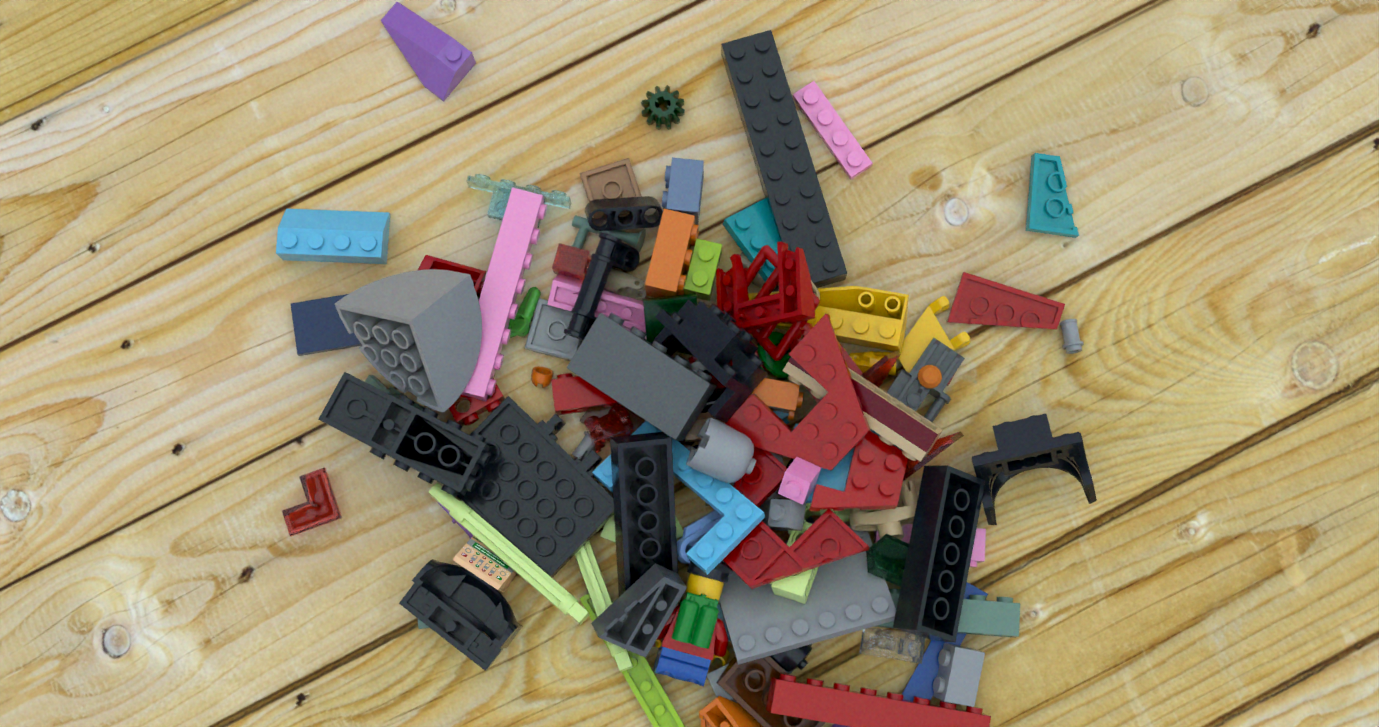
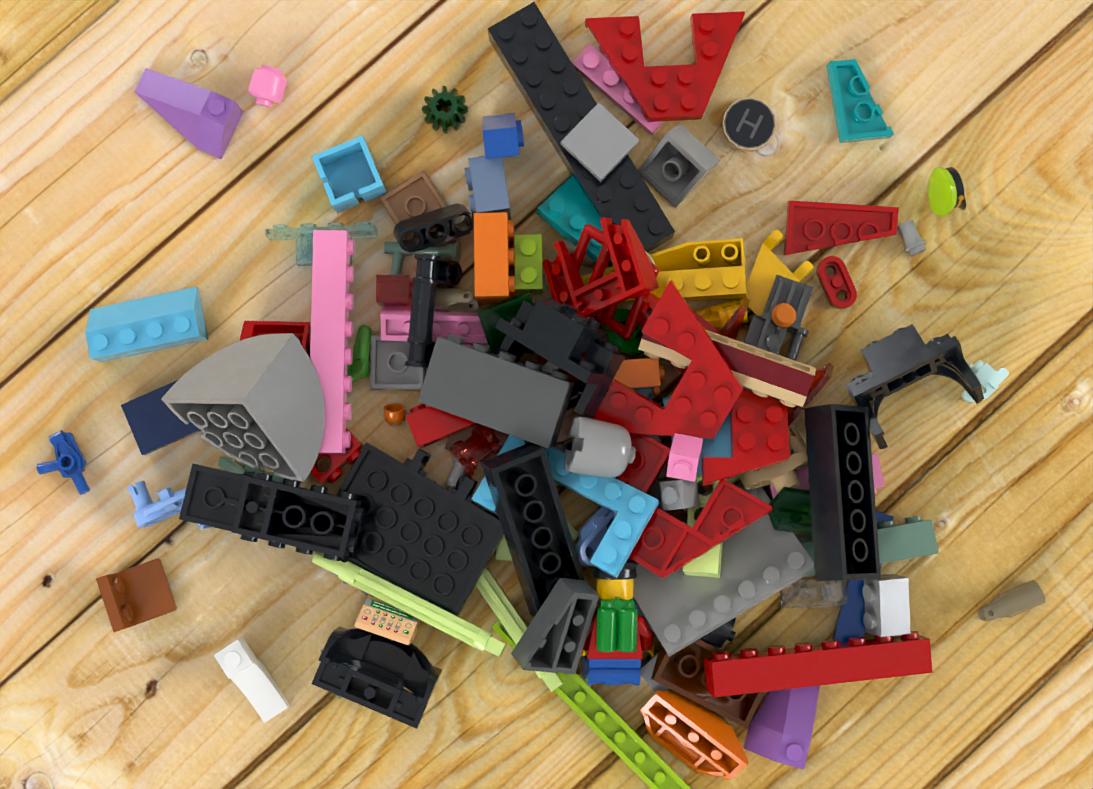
camera: 15 degrees left, 5 degrees up
(229, 342) = (68, 460): none -> blue piece
(258, 482) = (136, 594): none -> dark orange bracket
(293, 410) = (152, 513): none -> light blue piece
(320, 505) = (206, 605): clear red brick -> none
(343, 589) = (252, 679): none -> white slope
(505, 45) = (267, 85): none -> bright pink head
(560, 145) = (351, 174): none -> medium azure piece
(708, 144) = (502, 135): none -> blue brick
(797, 173) = (599, 142): none -> light grey tile
(867, 212) = (678, 164): none -> light grey slope
(878, 142) = (669, 90): none -> red wing
(944, 192) = (748, 124): none -> black tile
(989, 360) = (838, 282): none -> red plate
(1082, 705) = (1013, 602): none -> dark tan piece
(1105, 485) = (987, 377): none -> light aqua piece
(1113, 300) = (945, 191): none -> lime piece

